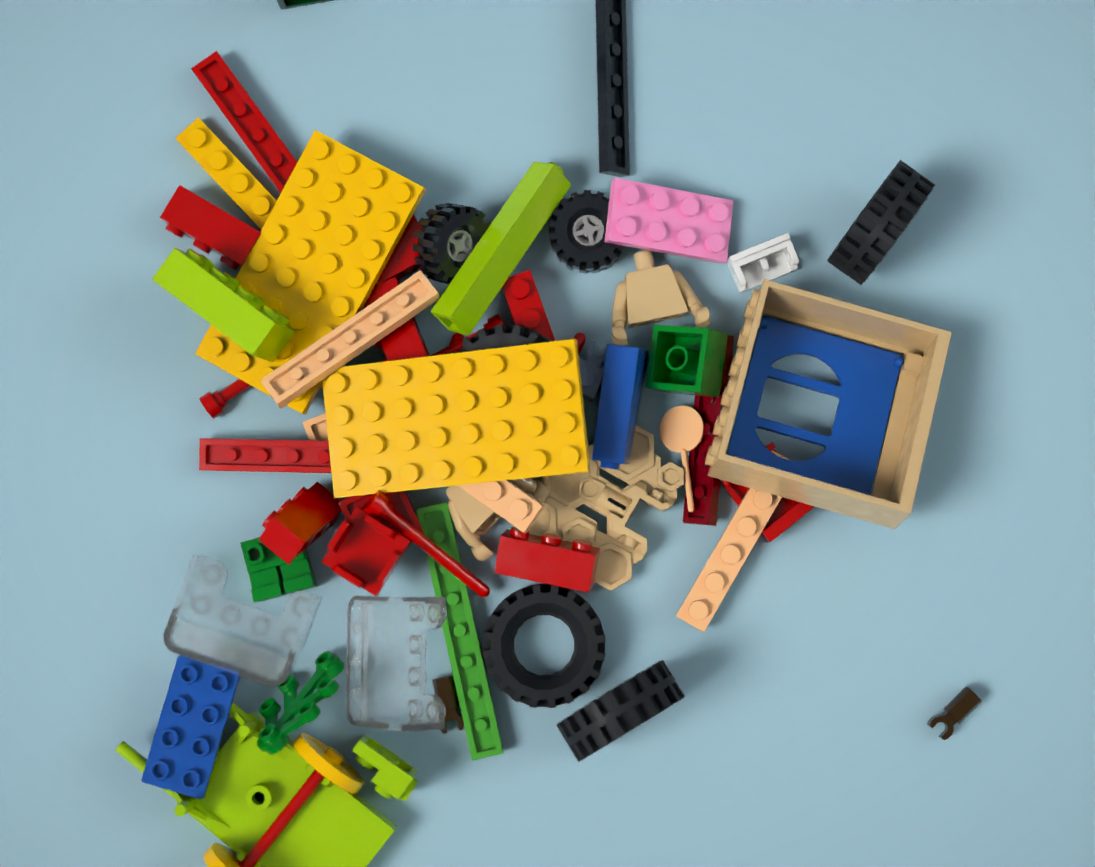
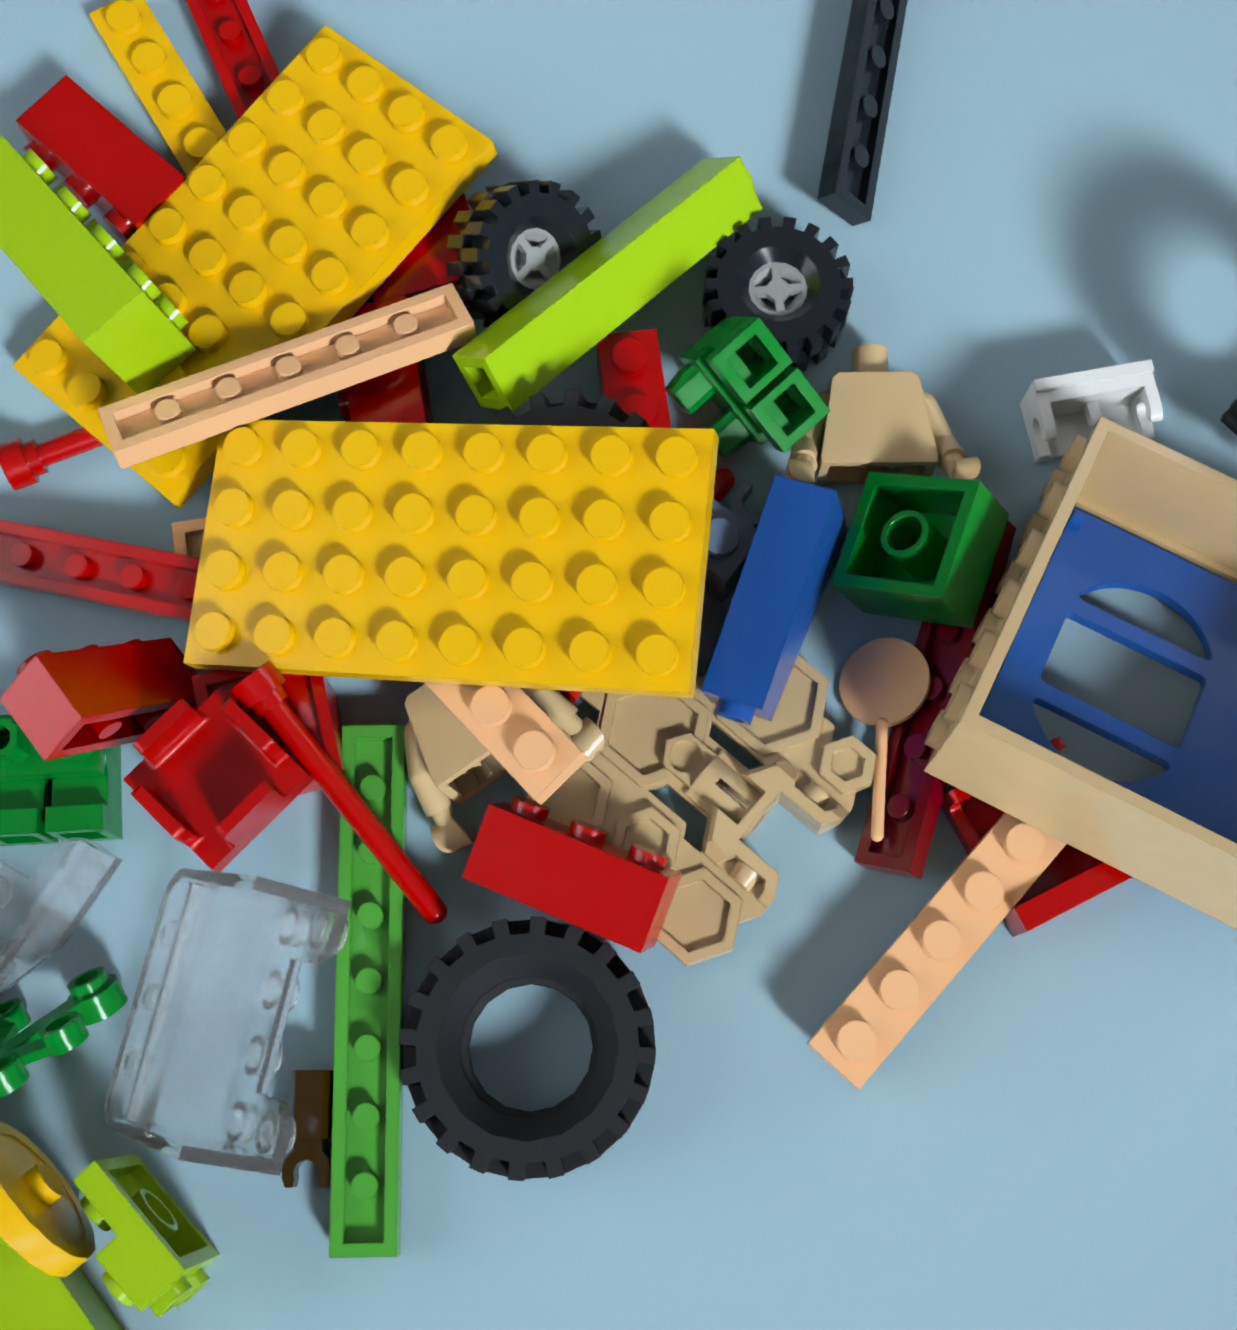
camera: 15 degrees right, 10 degrees down
(585, 291) = (751, 385): none -> green hips
(620, 710) = (654, 1217): black tyre -> none
(668, 221) = (929, 301): bright pink plate -> none

